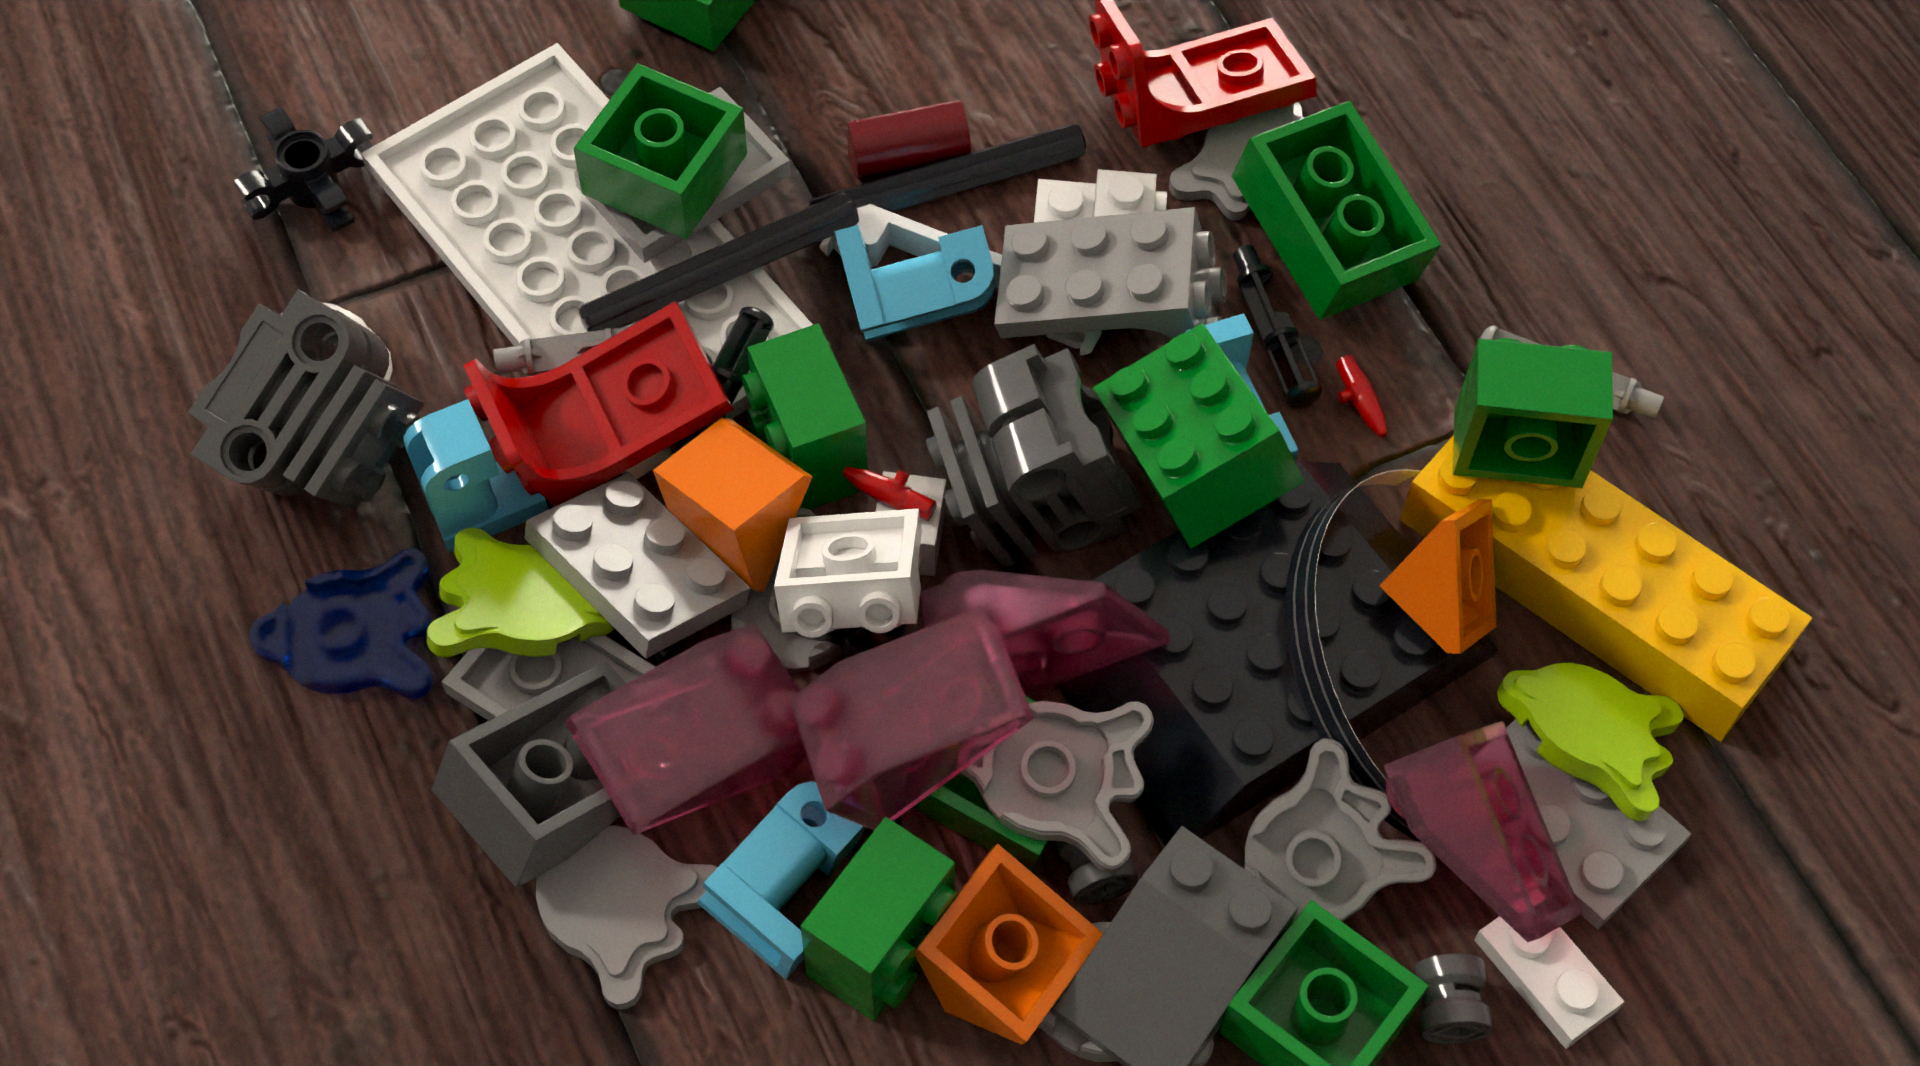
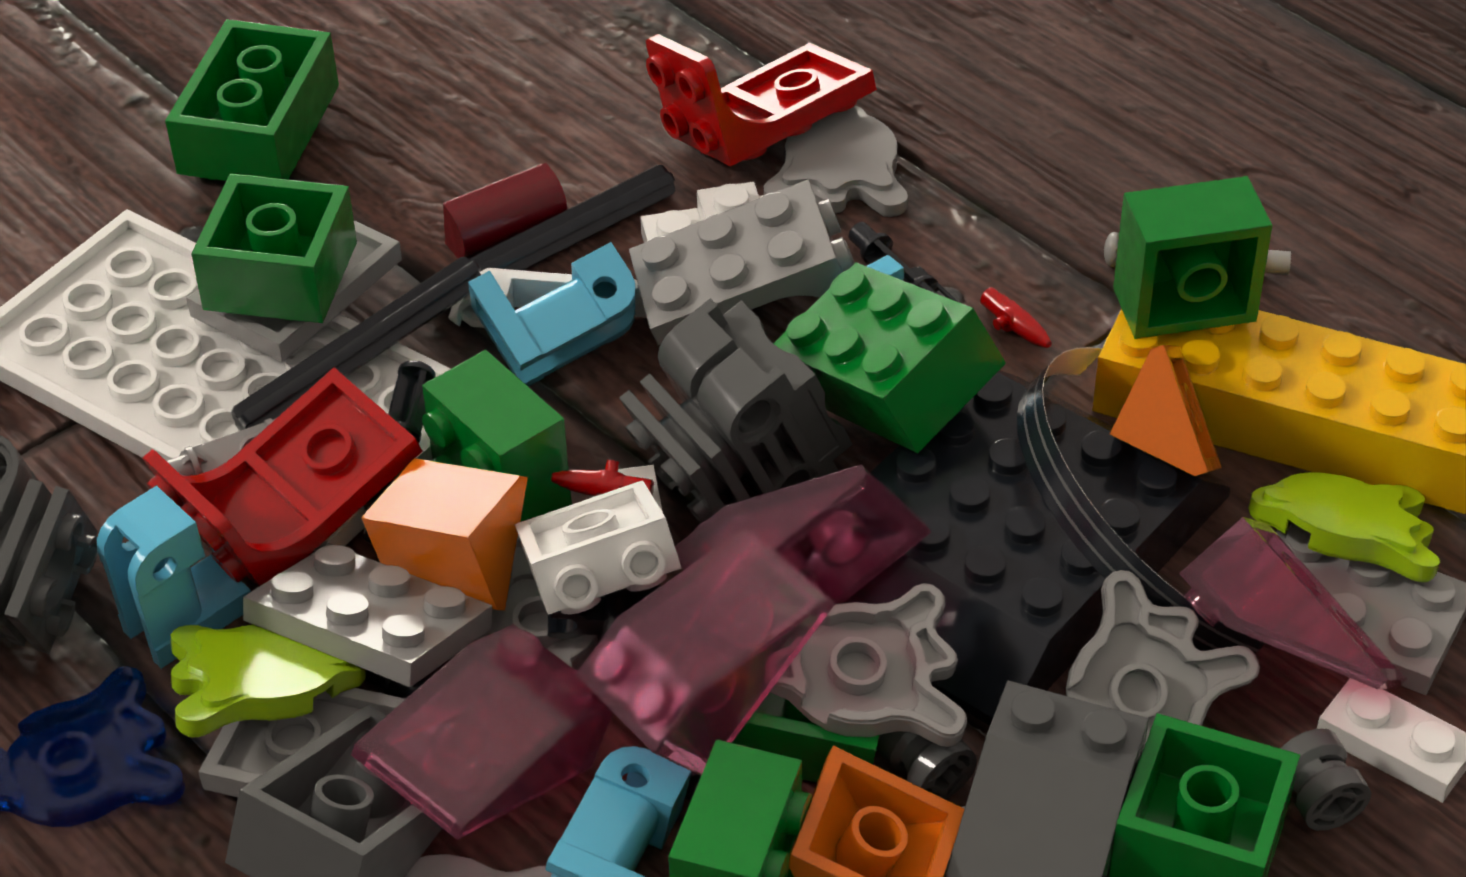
camera: 15 degrees left, 15 degrees down
(1335, 209) = (932, 168): green brick -> none

